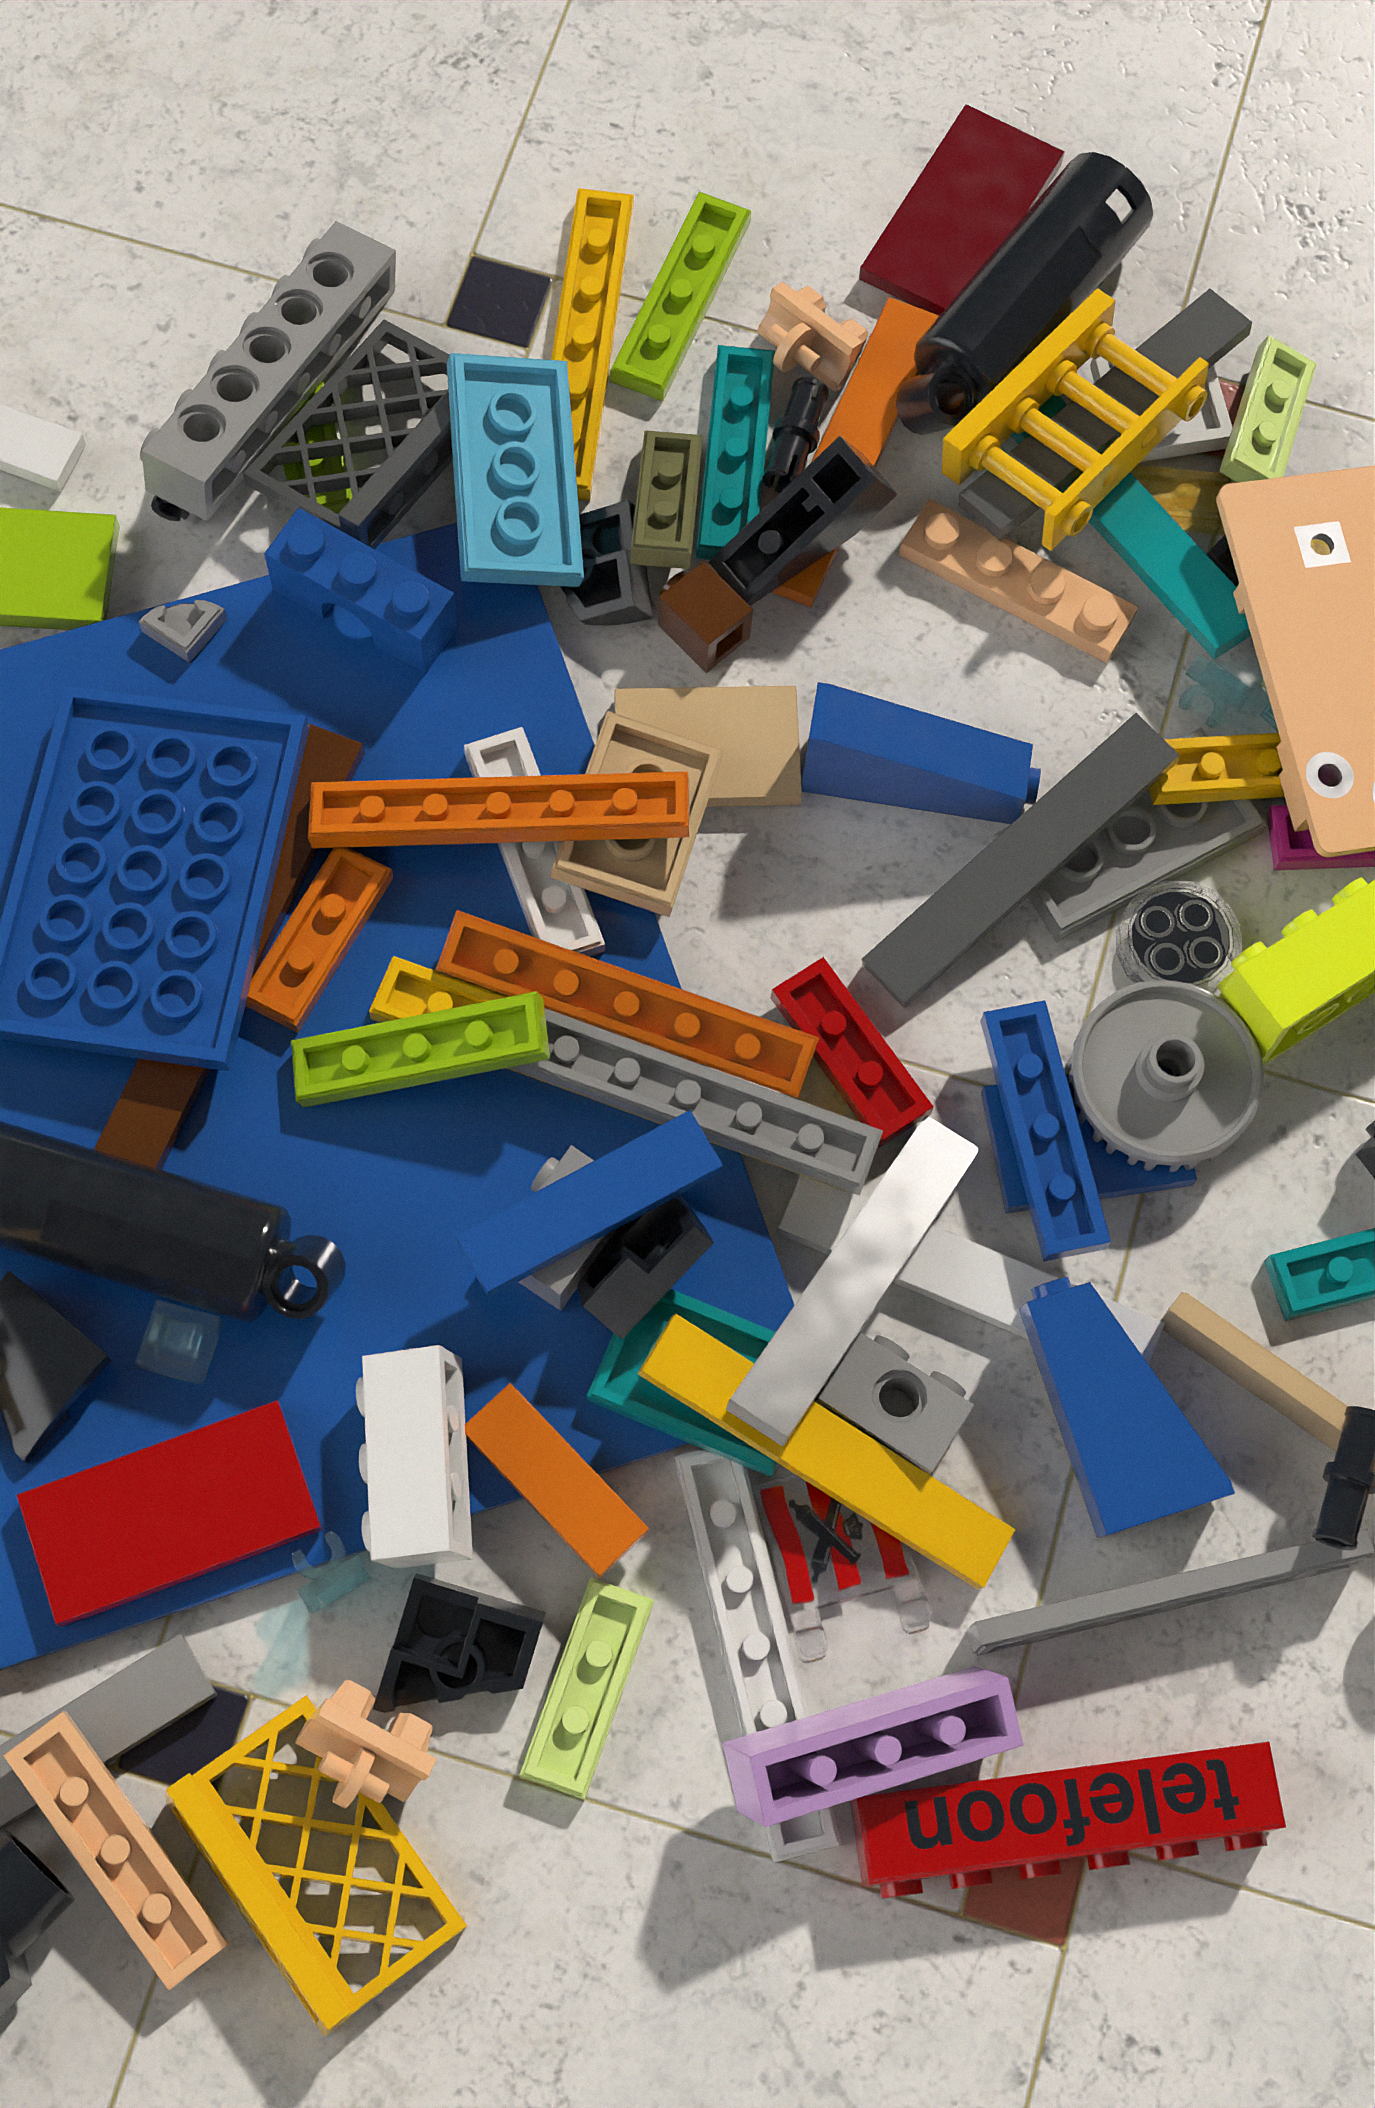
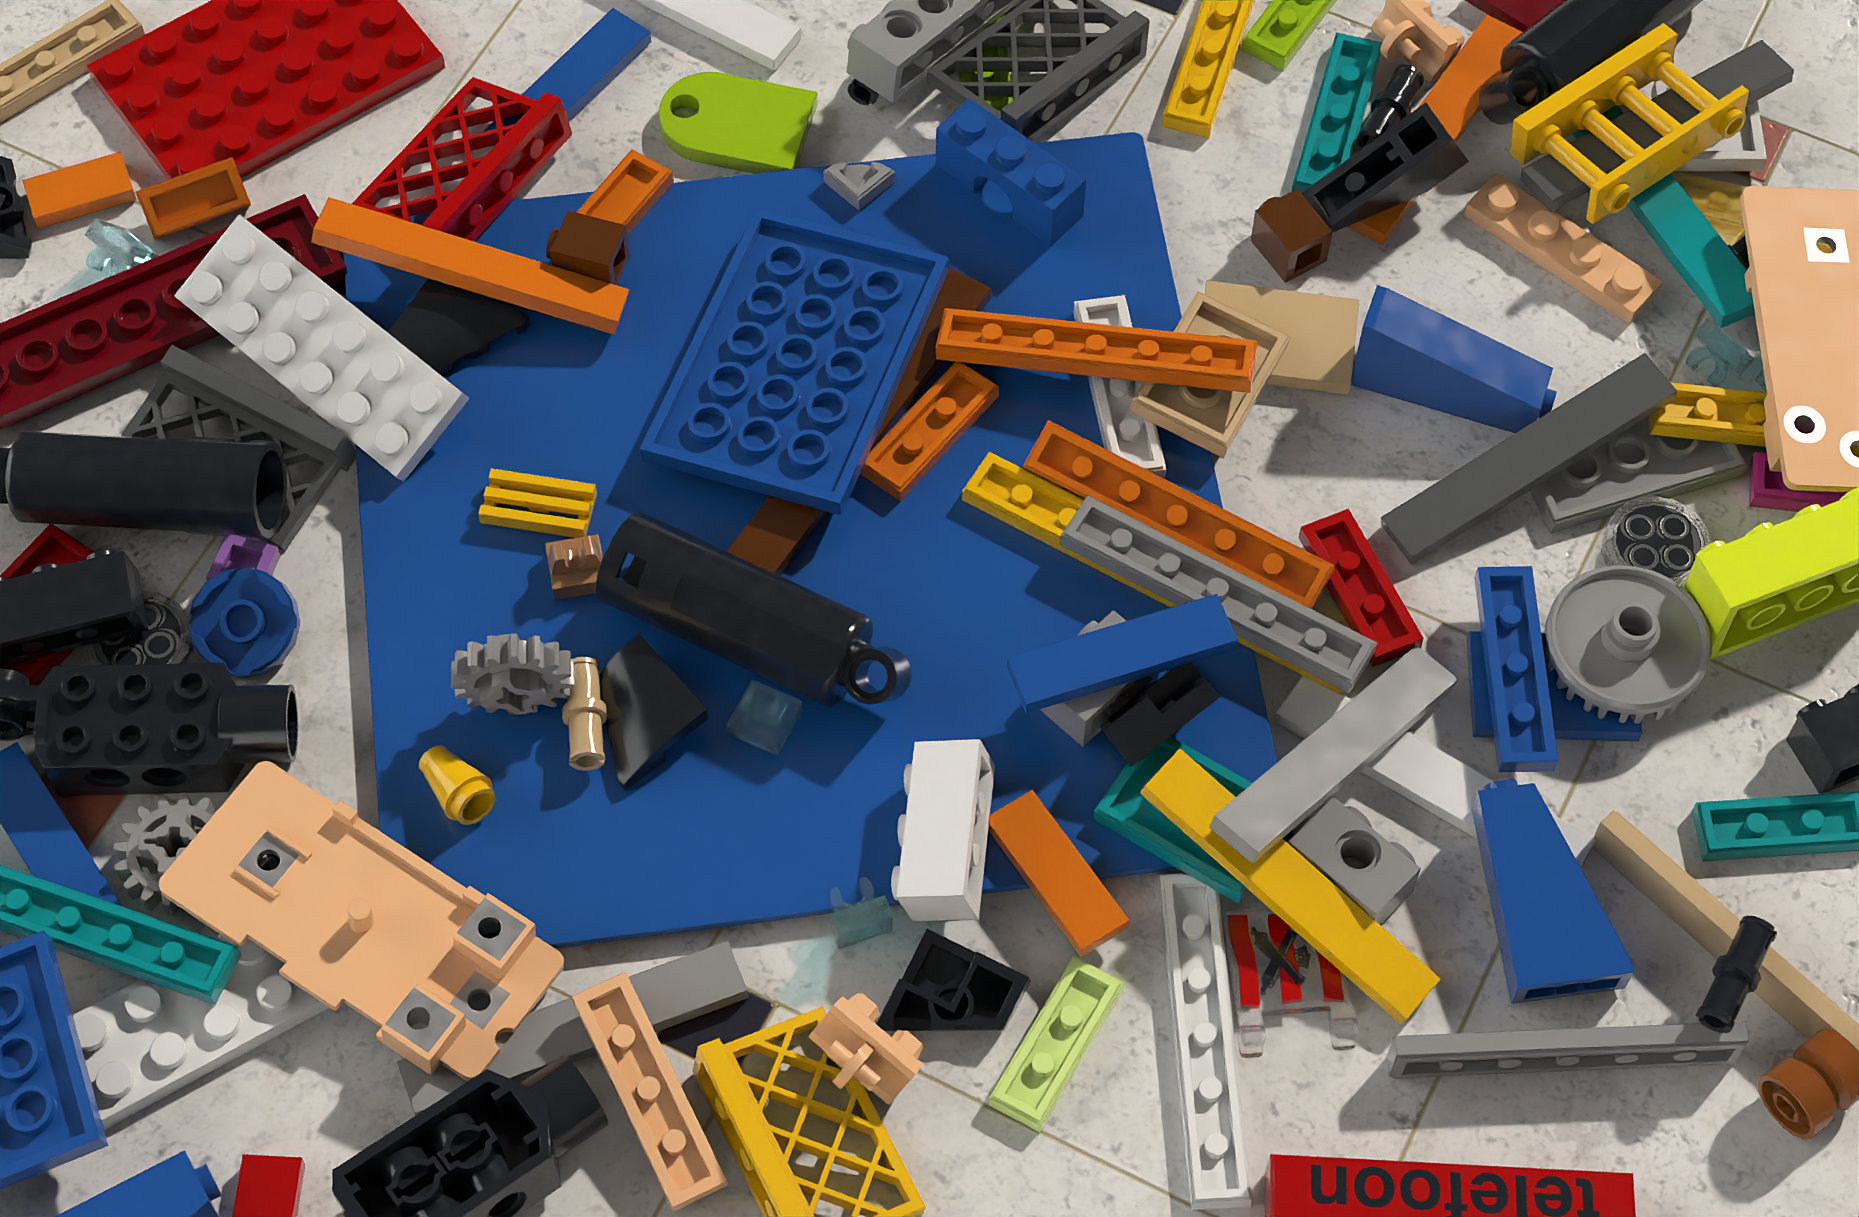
camera: 15 degrees right, 10 degrees down
(168, 1513) = (735, 844): red tile -> none
(420, 1049) = (1000, 522): lime tile -> none
(514, 470) = (1150, 99): medium azure tile -> none
(611, 586) = (1206, 182): black slope -> none
(666, 500) = (1273, 141): olive tile -> none
(872, 1745) = (1291, 1113): lavender brick -> none
(1268, 413) = (1800, 142): yellowish green tile -> none

